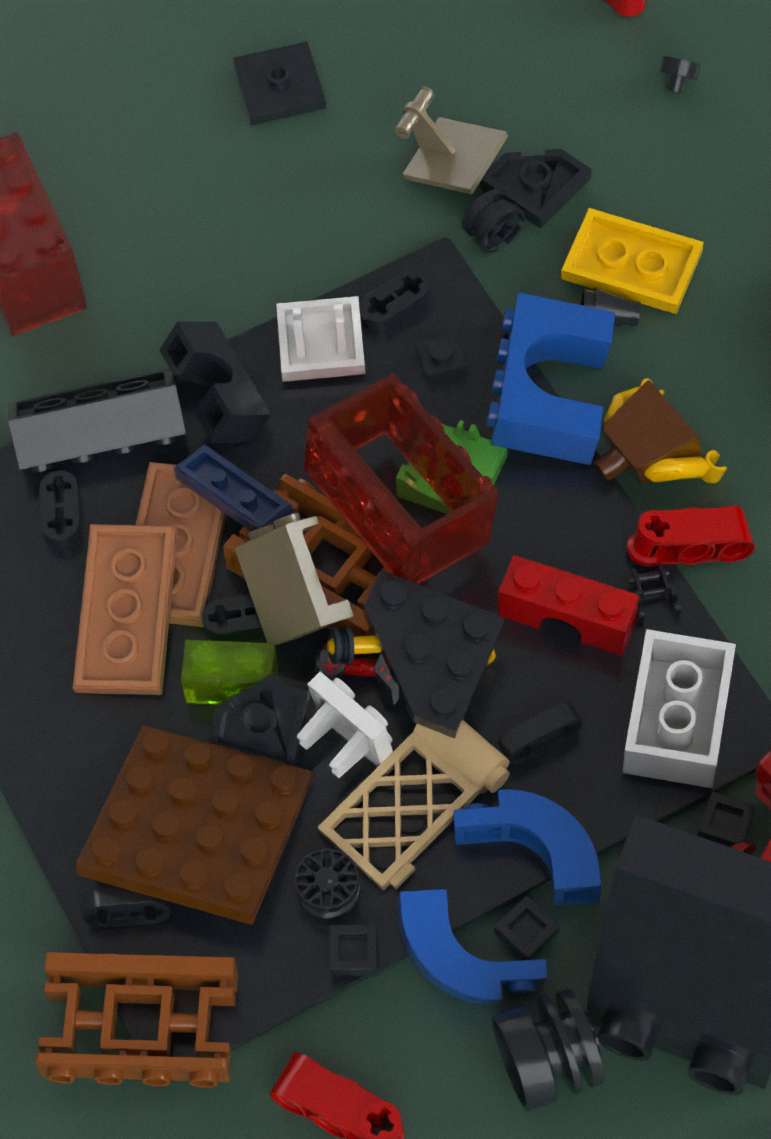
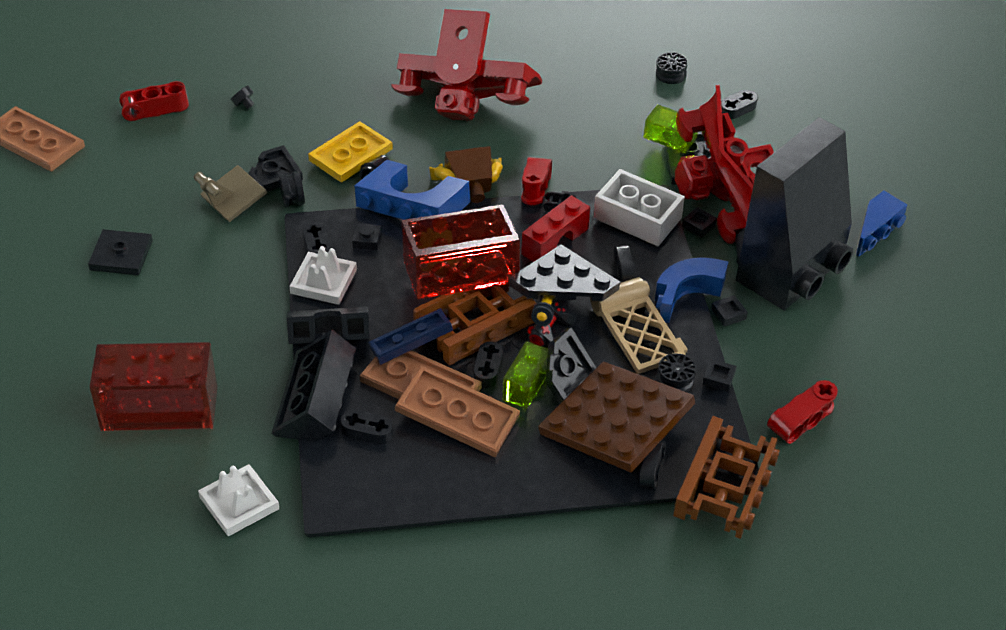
camera: 75 degrees left, 15 degrees down
(286, 581) = (494, 317): dark tan panel -> none
(360, 727) = (594, 324): white plate -> none
(447, 965) = (732, 341): blue arch -> none
(548, 1049) = (807, 314): black wheel -> none

